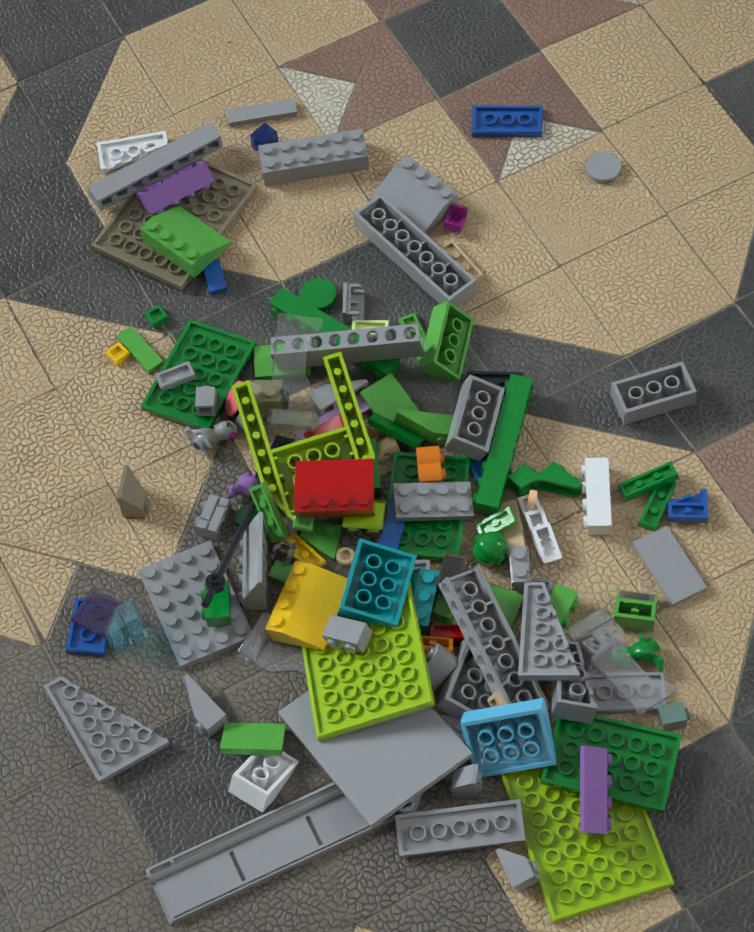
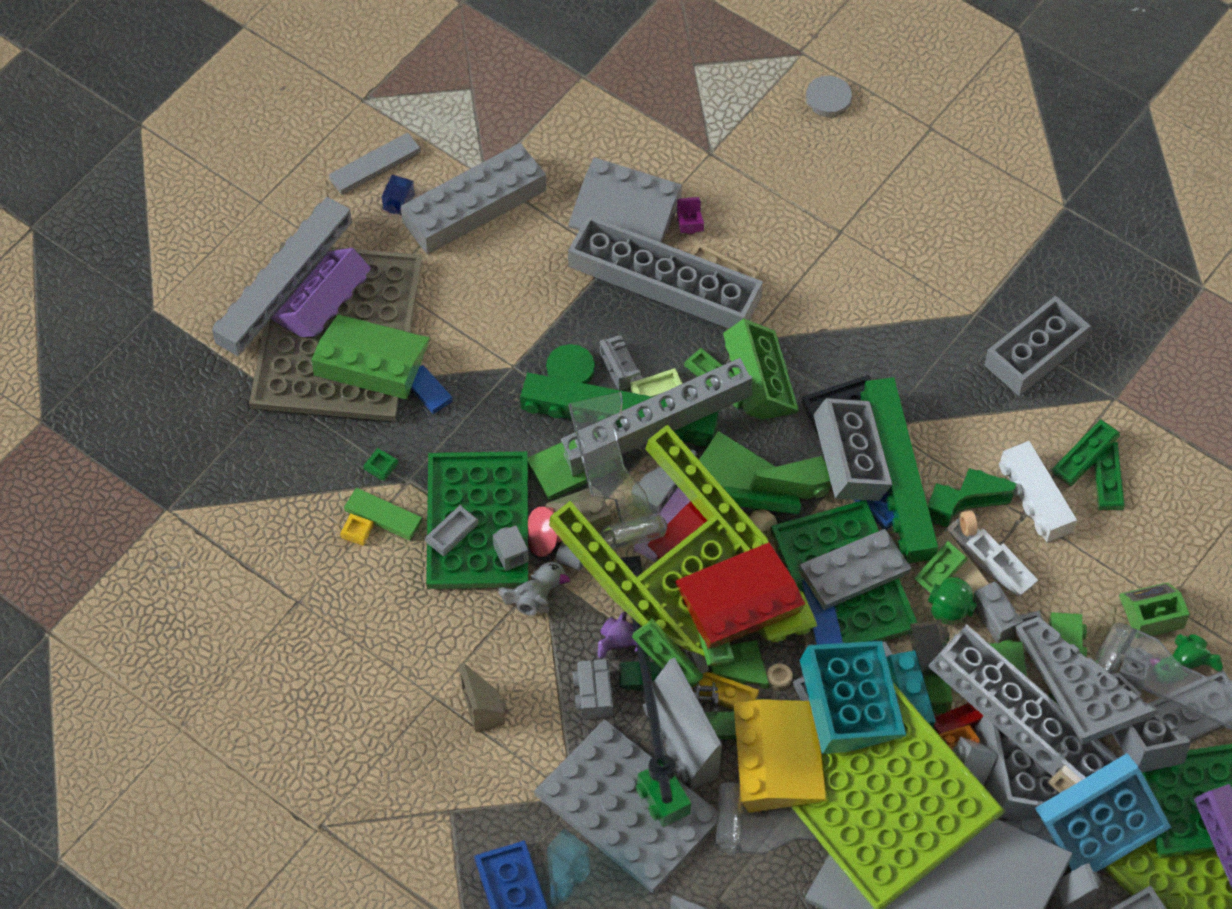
camera: 30 degrees left, 0 degrees up
(95, 612) = (516, 863): clear purple tile -> none
(129, 149) = (228, 267): white wing -> none
(347, 634) = (848, 769): light grey brick -> none
(429, 464) = (827, 527): orange brick -> none
(507, 121) = (684, 77): blue tile -> none
(669, 566) = (1161, 544): light grey tile -> none
(689, 508) = (1148, 467): blue wing -> none

